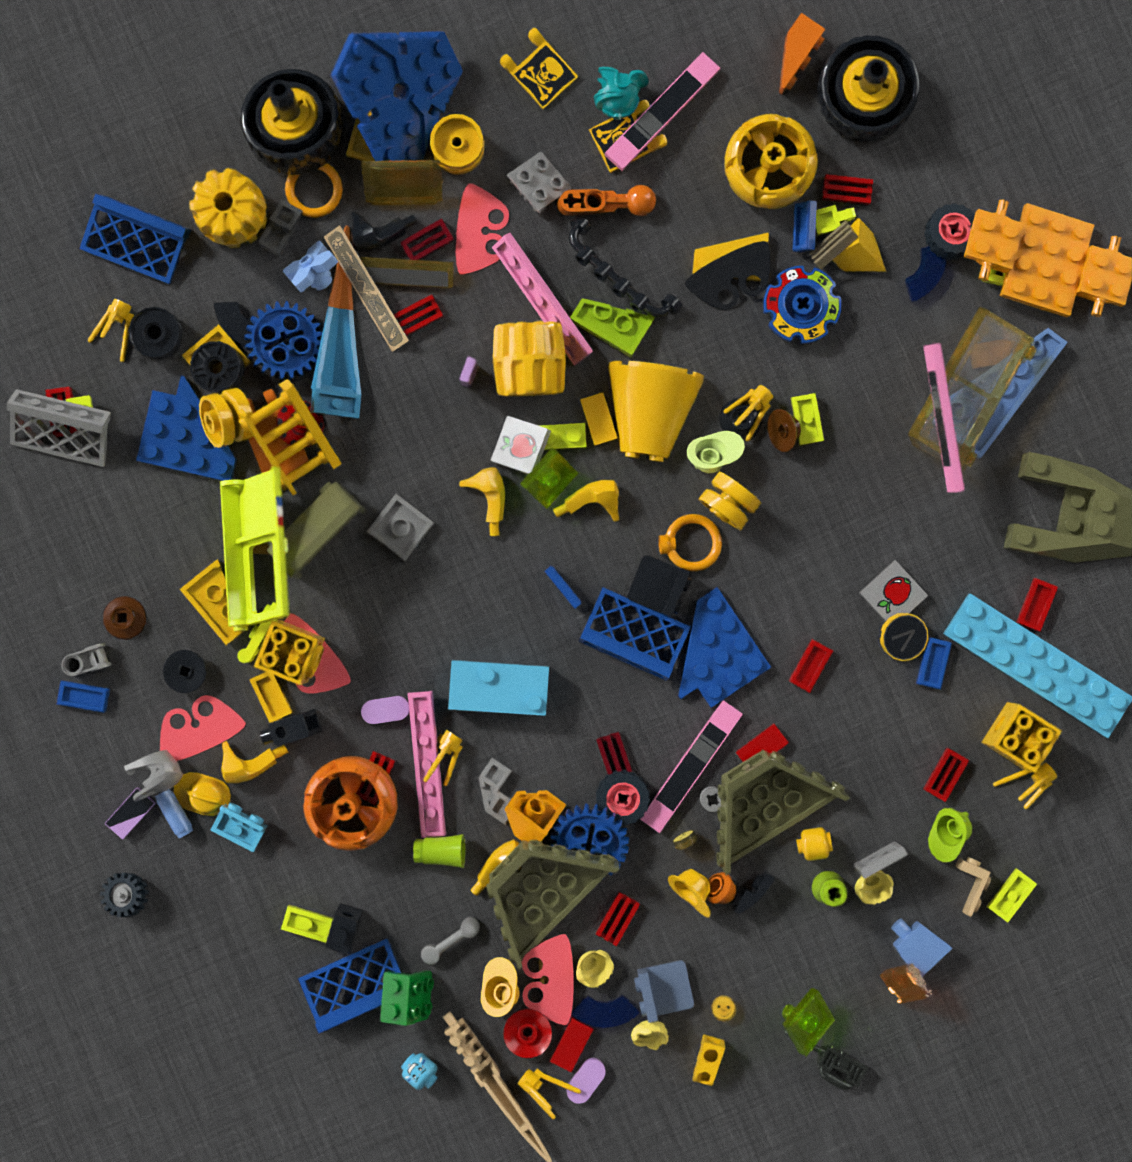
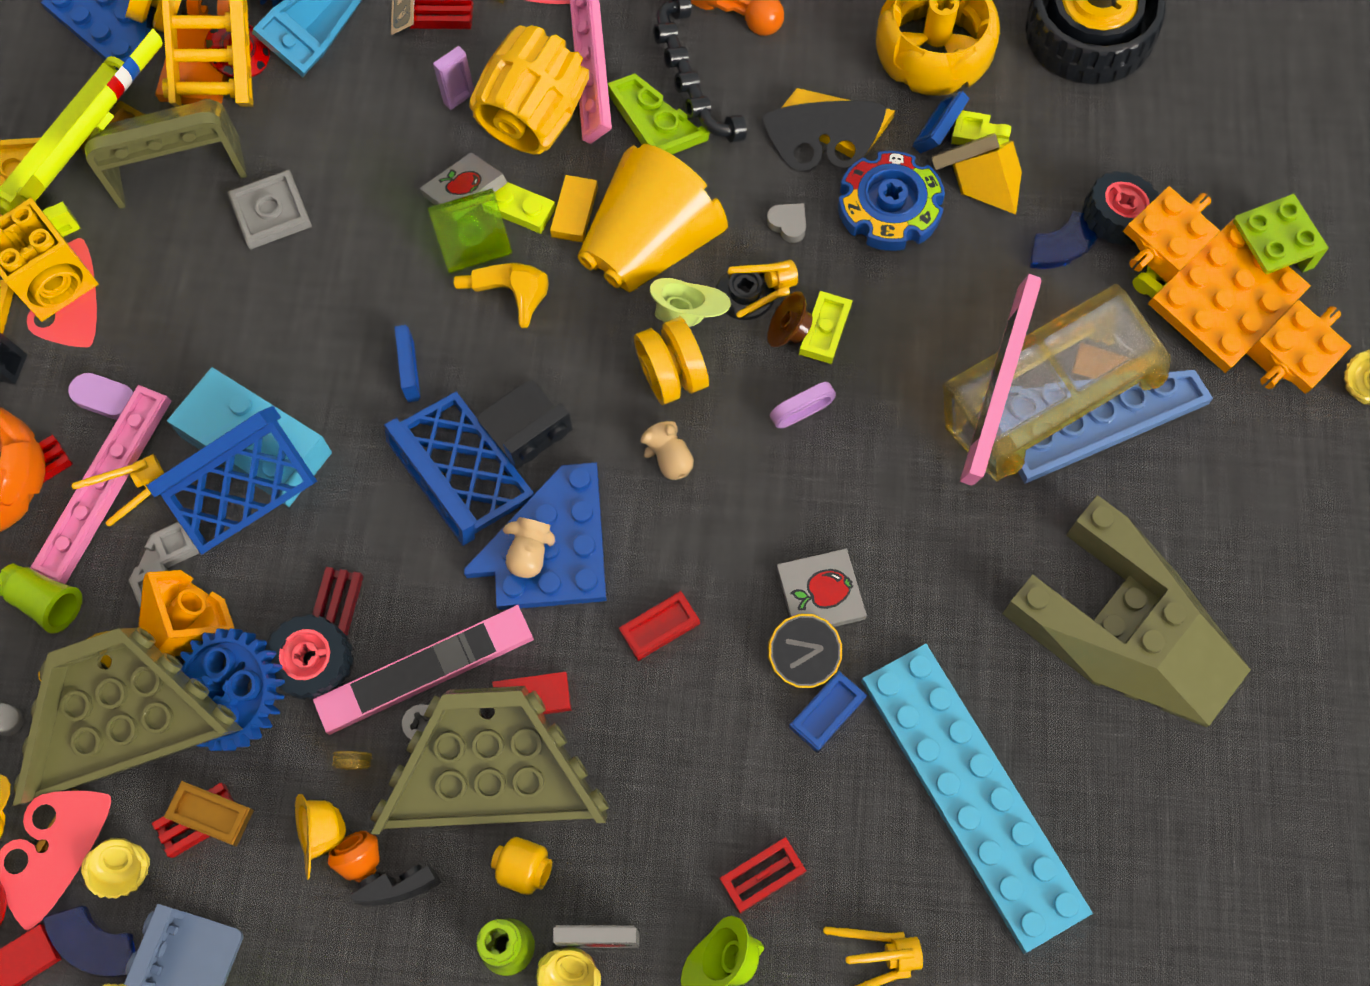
camera: 30 degrees right, 20 degrees down
(492, 485) = (401, 210): yellow animal -> none
(498, 718) = (222, 451): none -> blue fence
(625, 912) = (209, 813): none -> pearl gold tile
(667, 542) = (567, 380): light orange piece -> none
(715, 669) = (527, 550): none -> tan animal
(742, 353) = (788, 220): none -> light grey tile
(759, 556) = (672, 453): none -> tan animal
(822, 481) = (803, 405): none -> lavender tile
(849, 180) = (1017, 110): red tile -> none
(1021, 737) = (898, 870): yellow brick -> none
(1036, 604) = (1012, 709): red tile -> none
(1062, 203) = (1281, 235): none -> lime bracket

